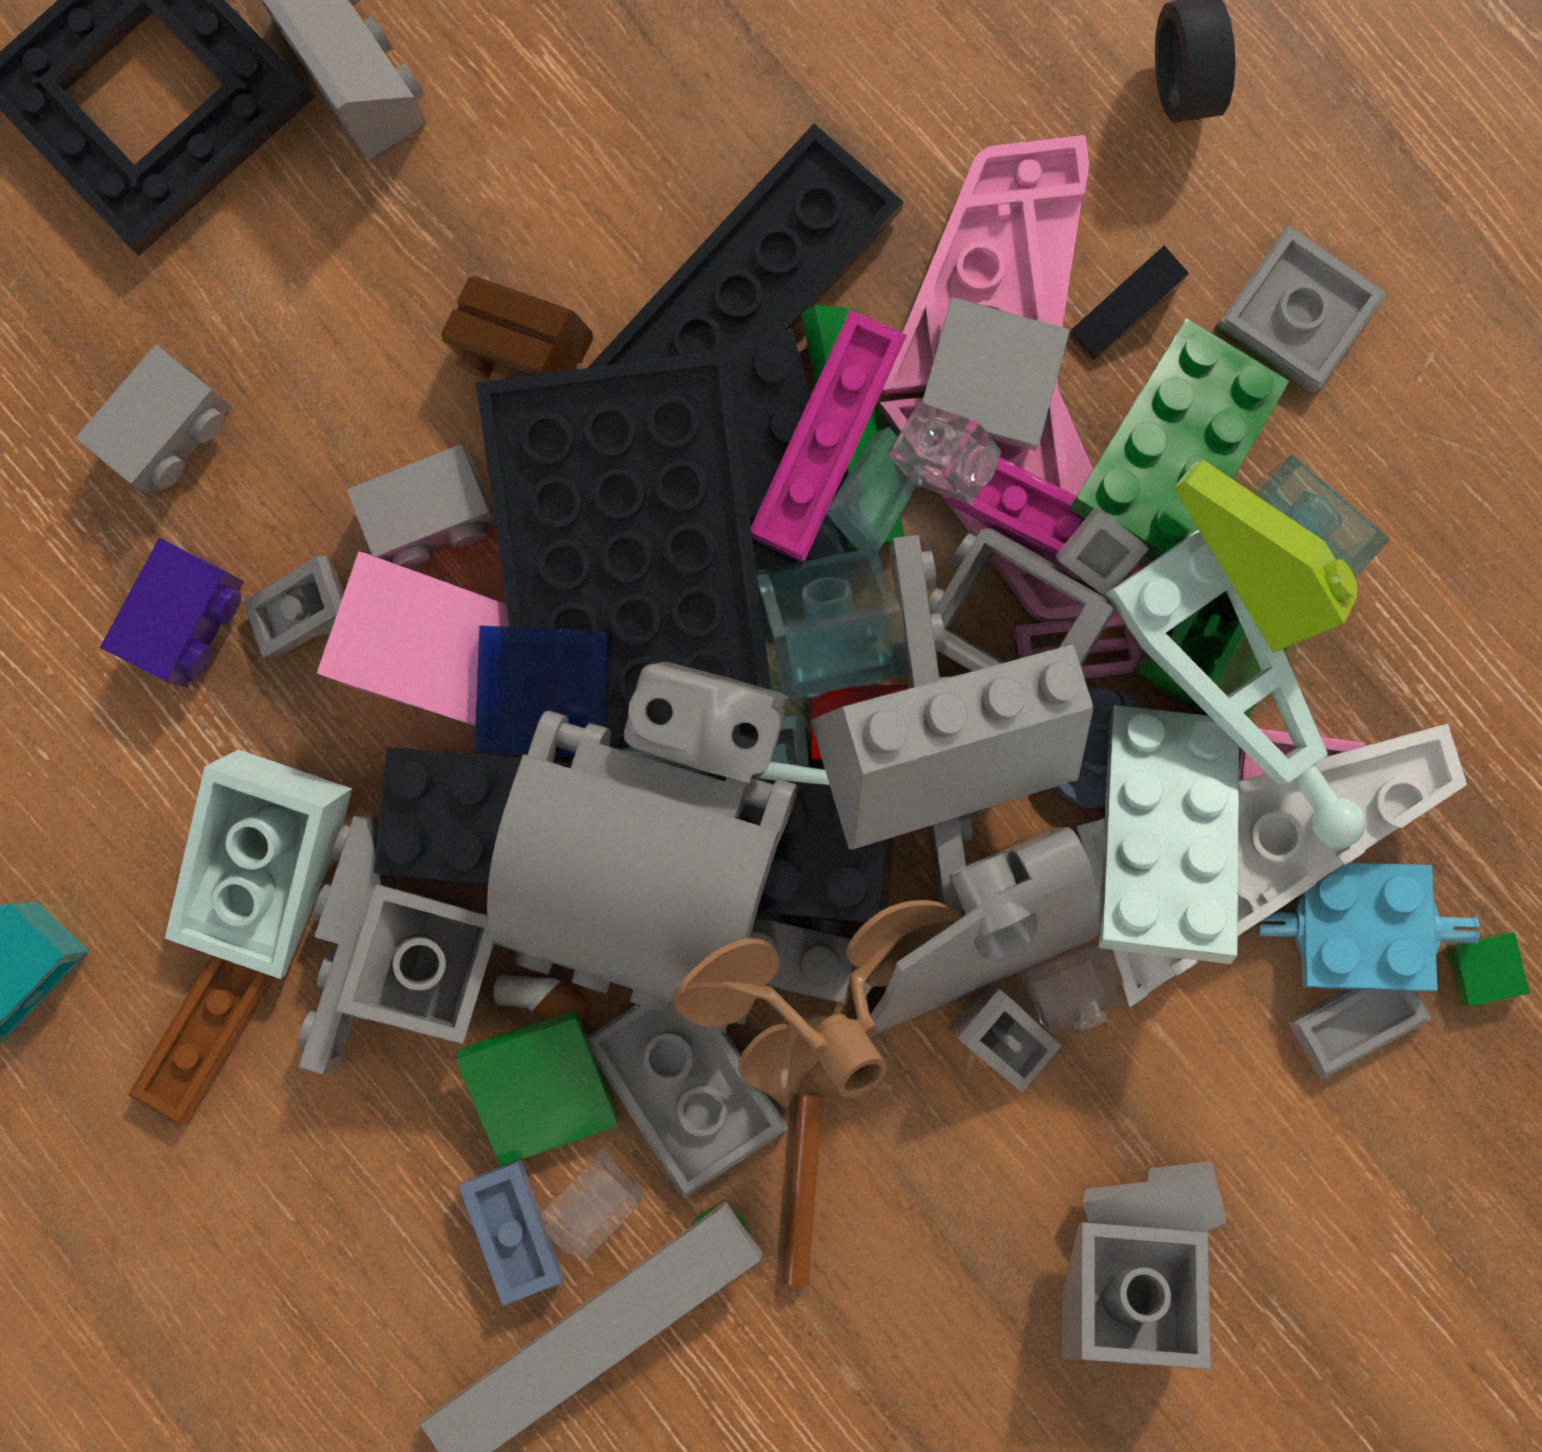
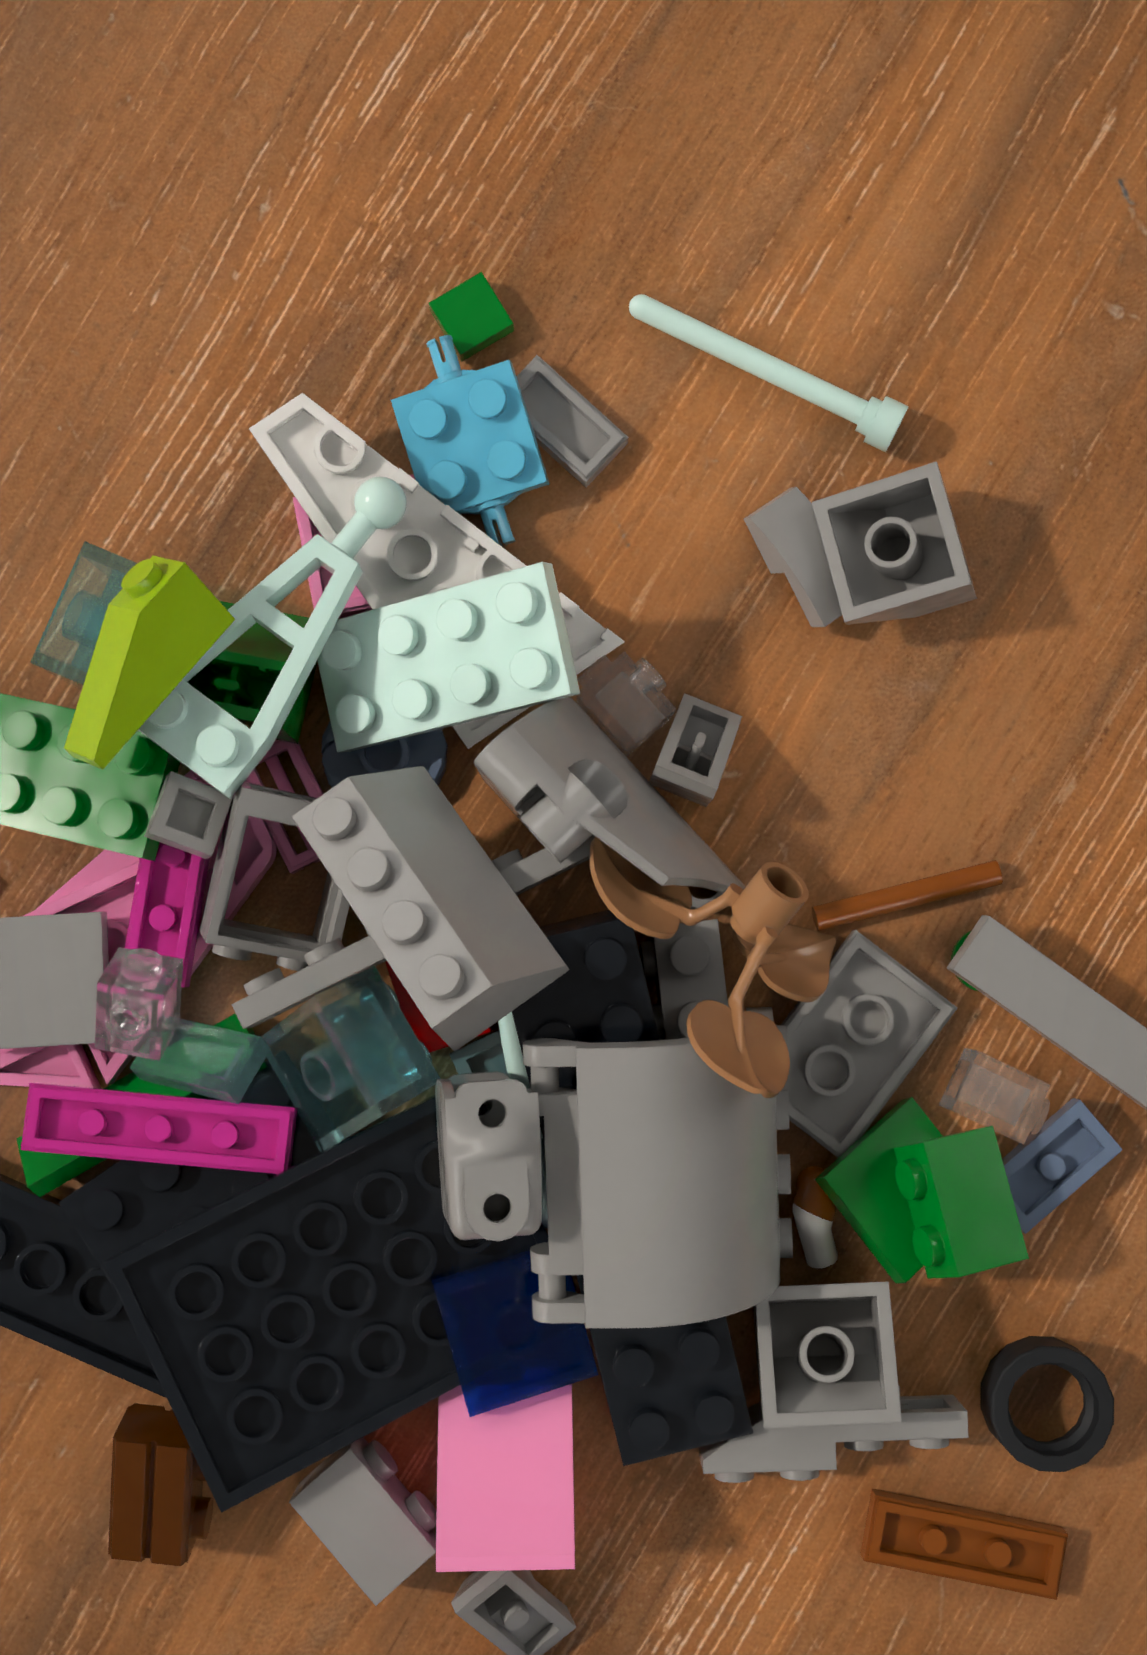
camera: 110 degrees left, 0 degrees up
(255, 860) = (781, 1558): light aqua slope -> none
(255, 1166) = (1083, 1439): none -> black tyre
(508, 1135) = (960, 1204): none -> green brick
(1267, 1322) = (874, 418): none -> light aqua piece

